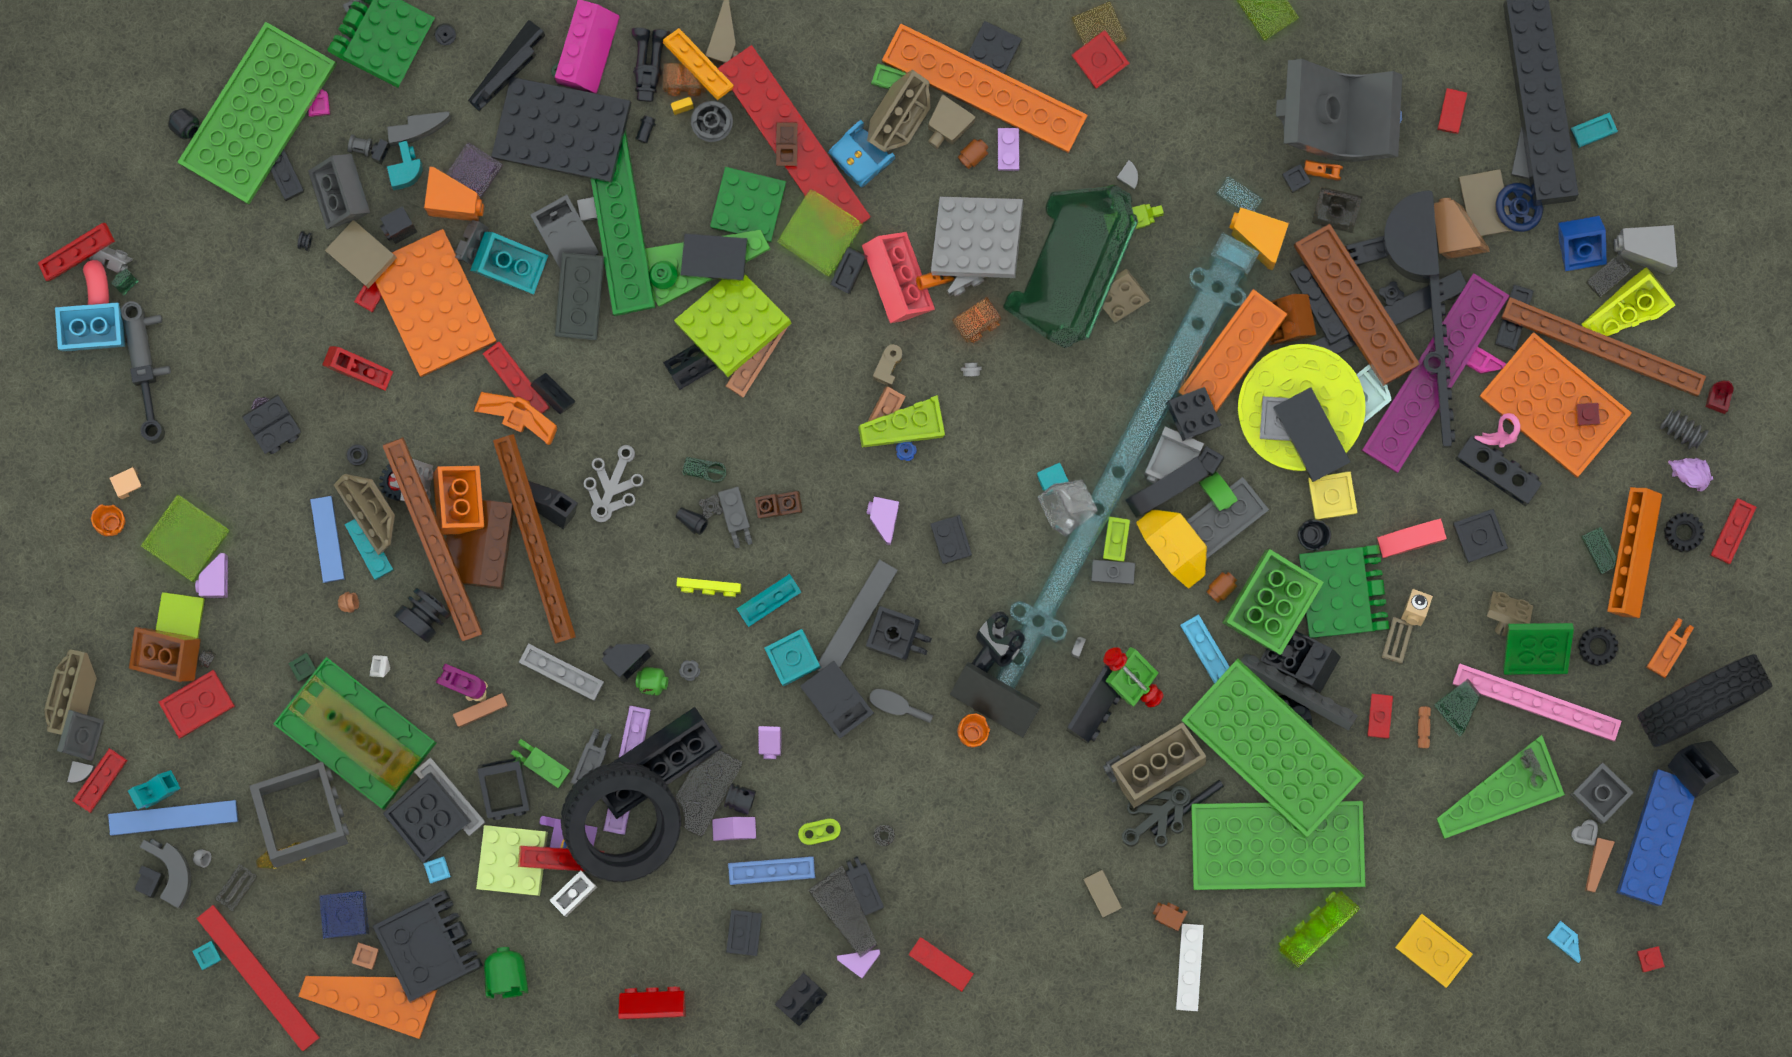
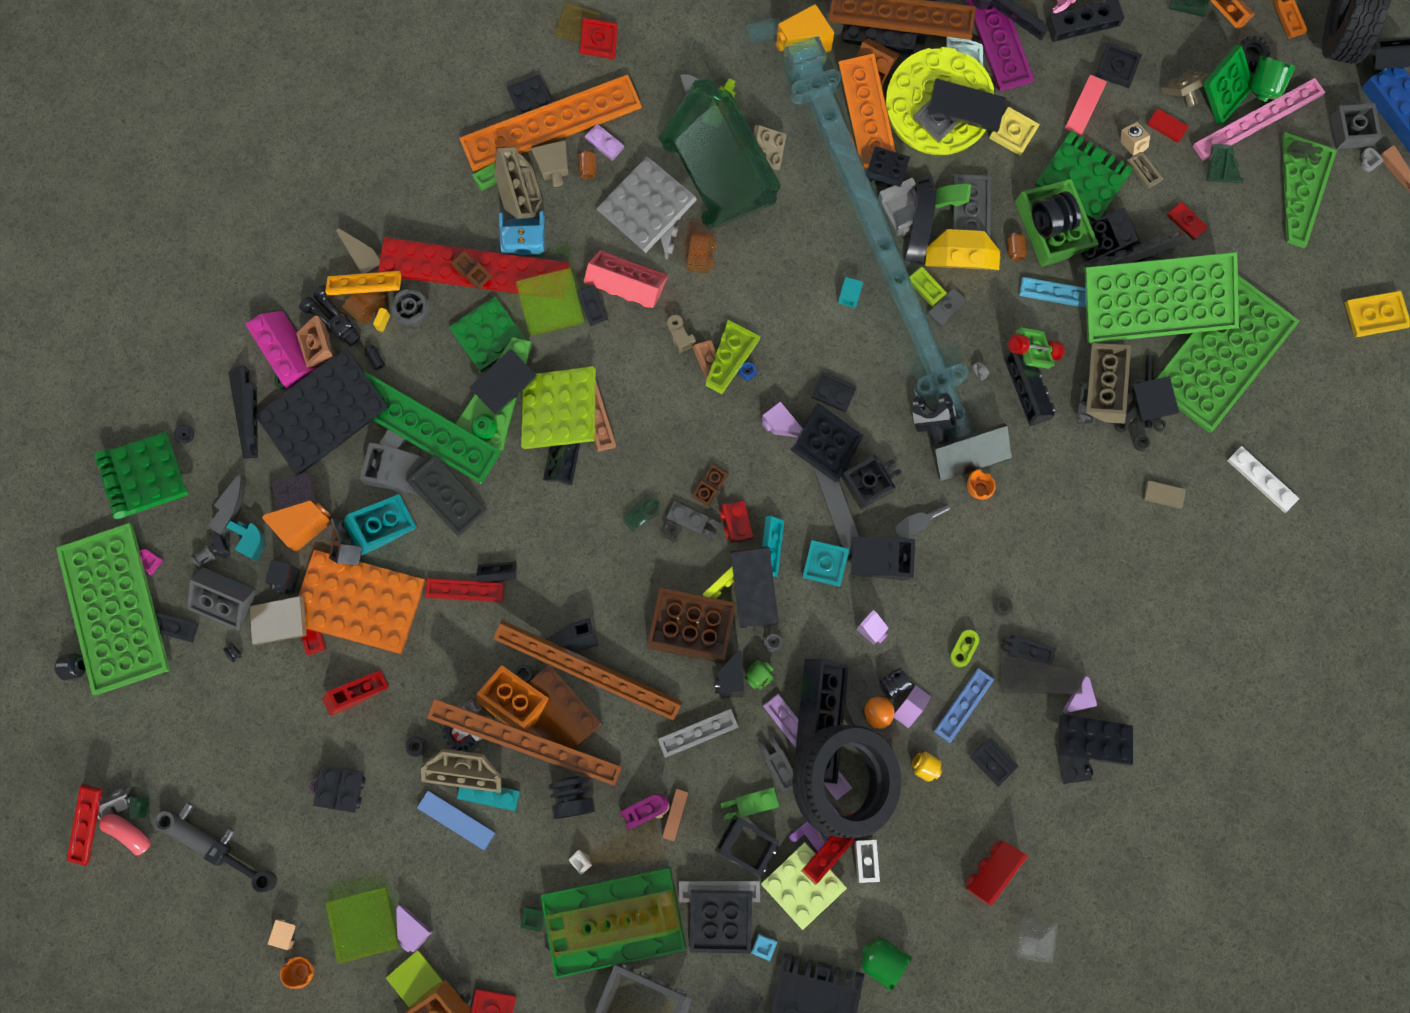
camera: 55 degrees left, 5 degrees down
(89, 327) = (146, 862): medium azure slope -> none
(348, 602) = (514, 844): nougat plate -> none
(458, 258) = (345, 553): none -> black panel
(495, 489) = (528, 670): none -> black bush
(517, 414) = (489, 608): orange plate -> none
(611, 486) = (598, 586): light grey plant -> none
(612, 72) = (315, 343): none -> nougat slope
(644, 591) = (691, 625): none -> reddish brown slope
(693, 521) = (670, 551): black cone -> none
(693, 880) = (926, 766): none -> yellow head
(704, 804) = (879, 712): none -> orange hair
(720, 615) = (754, 587): none -> black tile
(765, 553) = (737, 522): none -> red bracket
(832, 1000) = (1095, 740): none -> black plate
(896, 570) = (827, 442): none -> black plate
(928, 280) = (647, 258): orange bar -> none
(940, 964) = (1126, 644): red slope -> none
(971, 369) = (730, 283): light grey plate -> none
(1067, 505) = (880, 294): clear slope -> none
(1169, 915) = (1218, 461): dark orange brick -> none
(1178, 816) = (1155, 399): none -> black tile
(1267, 596) = (1056, 214): none -> black wheel
(1314, 534) = (1032, 161): black hair -> none
(1317, 929) = (1308, 372): clear neon green slope -> none
(1424, 727) = (1217, 200): nougat axle -> none
(1459, 626) = (1167, 125): none -> red tile
(1581, 680) = (1271, 78): none -> green cylinder

